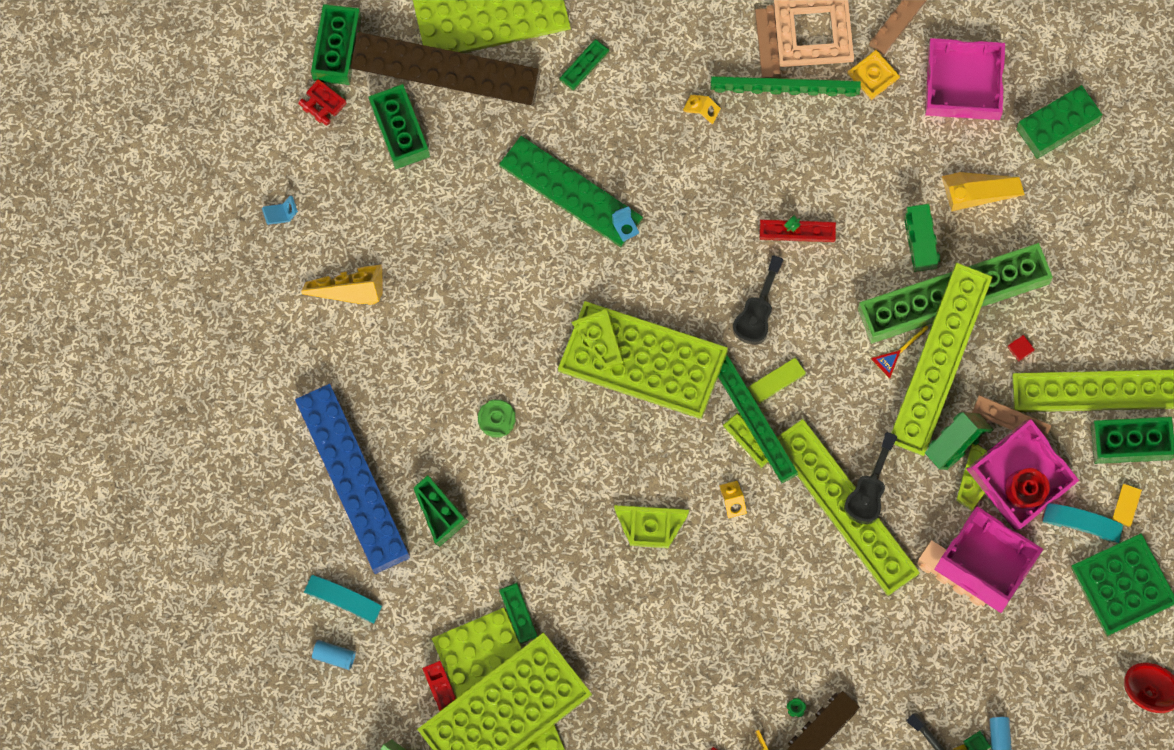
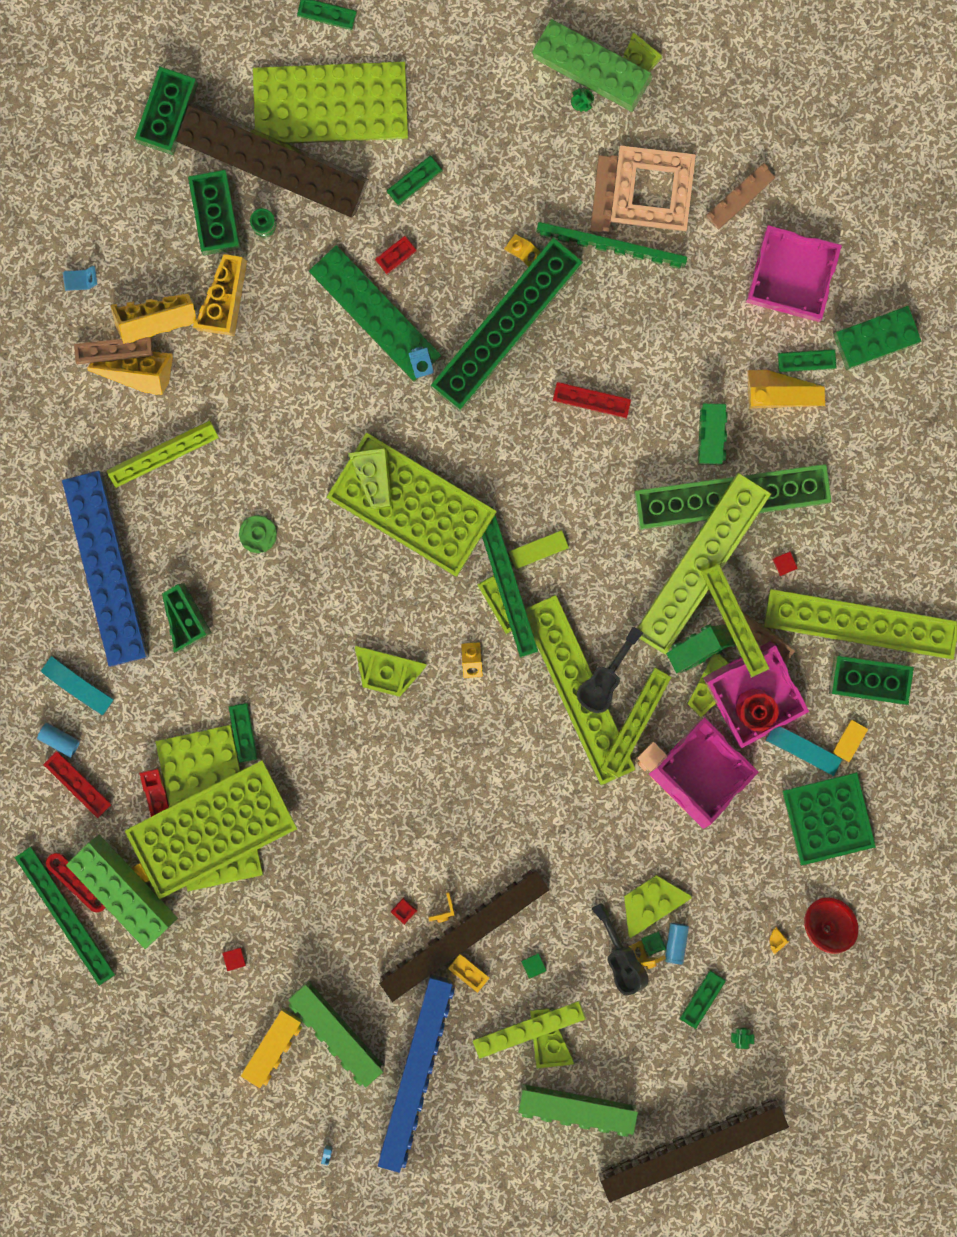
camera: 10 degrees right, 15 degrees up
(323, 270) = (112, 350): none -> medium nougat hinge
(326, 98) = (148, 167): red plate -> none
(357, 232) = (153, 317): none -> yellow wedge
(360, 696) = (77, 784): none -> red plate
(388, 359) = (162, 454): none -> lime plate
(421, 209) = (223, 298): none -> yellow wedge
(447, 127) = (263, 222): none -> green wheel
(580, 134) = (395, 255): none -> red plate
(700, 176) = (506, 324): none -> green brick
(752, 322) = (527, 486): pearl dark grey piece -> none
(792, 224) = (587, 394): green plate -> none
(801, 707) = (495, 875): green plate -> none
(874, 74) = (703, 249): yellow tile -> none
(888, 361) = (652, 550): piece -> none
(909, 526) = (635, 723): none -> lime plate
(965, 703) = (651, 902): none -> lime wing
(986, 403) = (735, 620): none -> lime plate
(997, 156) = (807, 361): none -> green tile
(1101, 717) = (777, 940): none -> yellow tile

